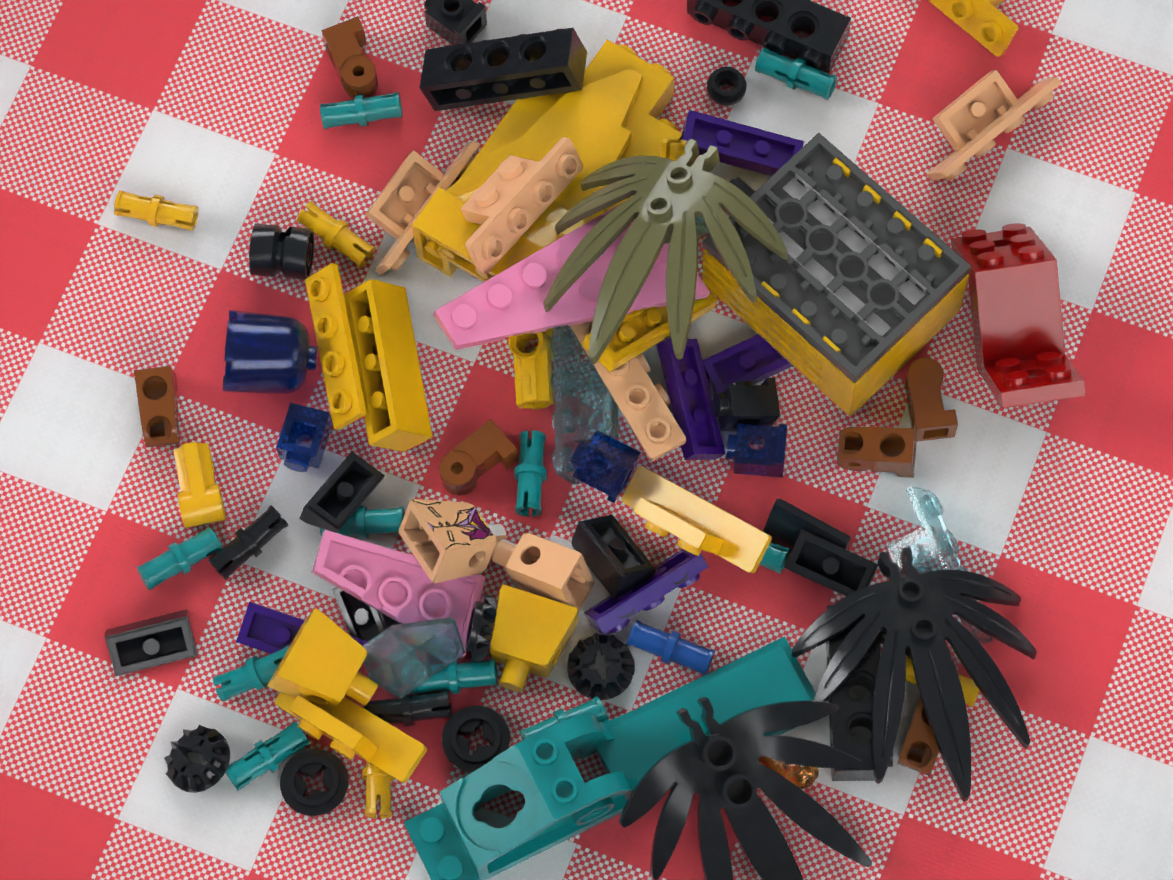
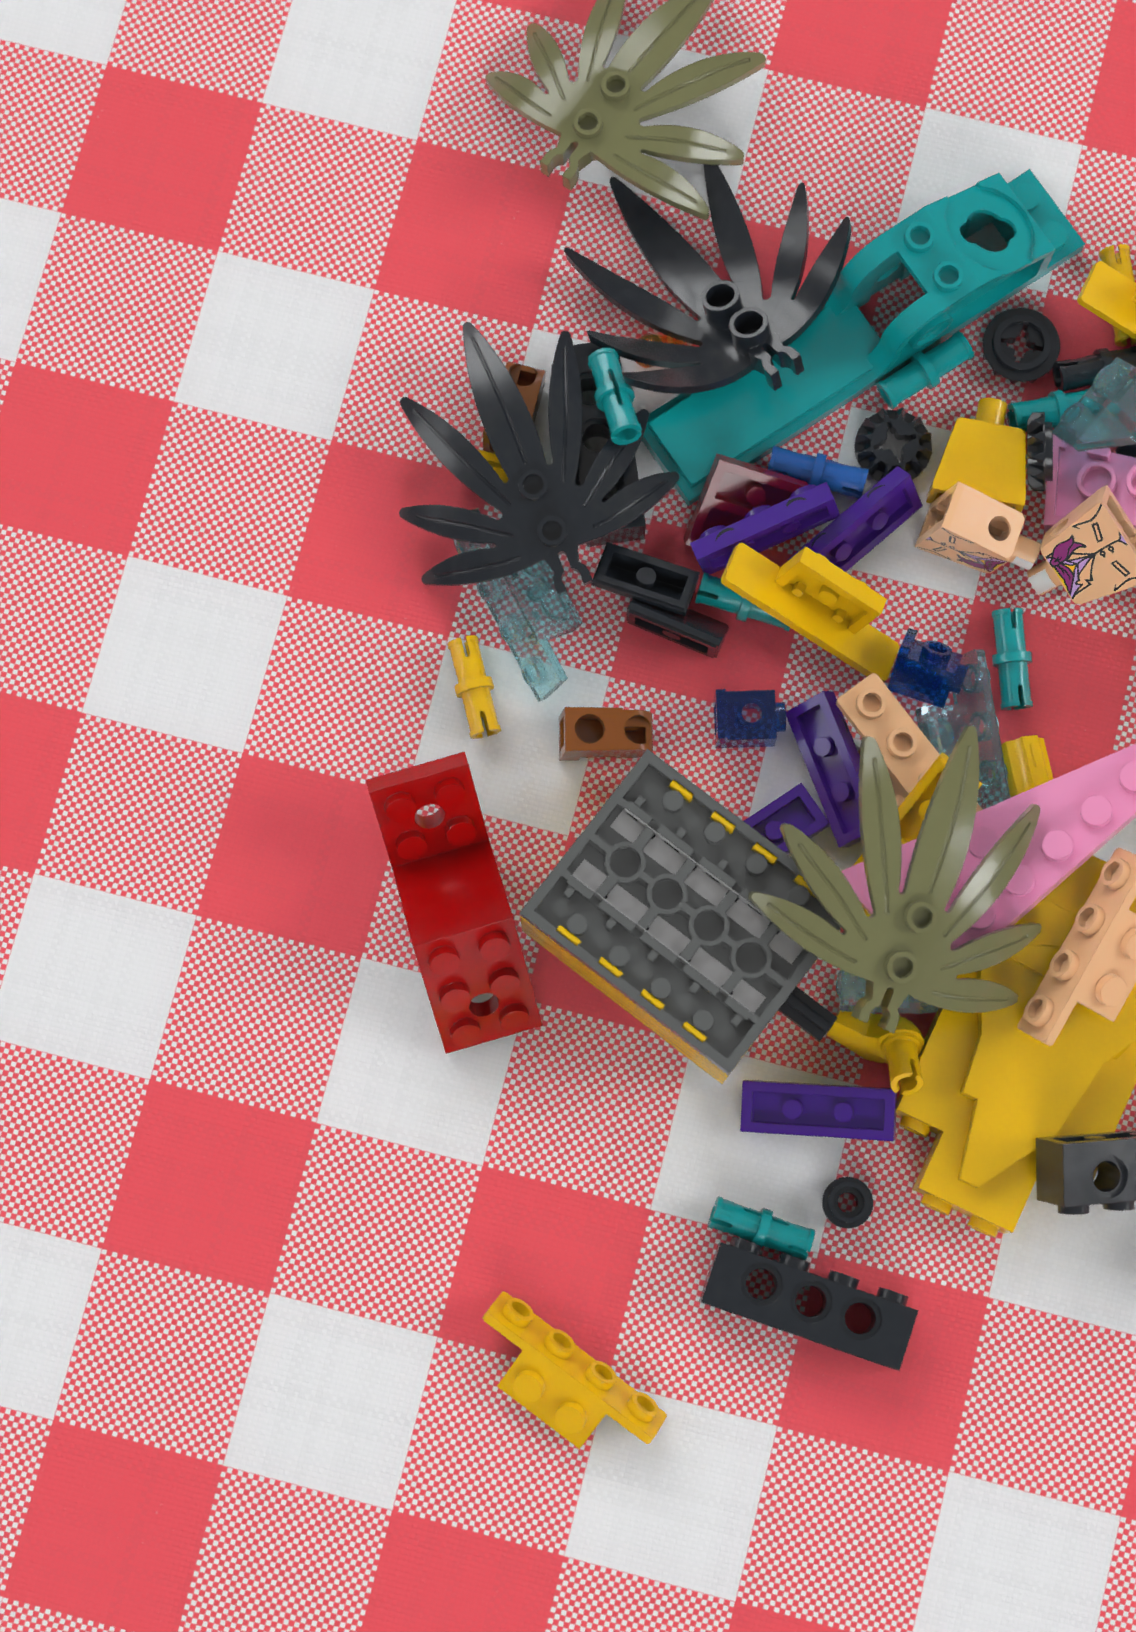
camera: 170 degrees right, 10 degrees up
(475, 457) = (1090, 658): dark orange leg -> none
(611, 554) = (900, 571): black slope -> none
(725, 594) = (766, 526): none -> dark purple plate
(736, 625) = (733, 491): none -> dark red wing
(747, 404) = (768, 765): black brick -> none
(847, 734) = (614, 396): none -> teal pin
(926, 403) = (558, 817): dark orange leg -> none
(981, 115) = (515, 1190): light nougat bracket -> none
(983, 504) = (474, 687): none -> yellow pin

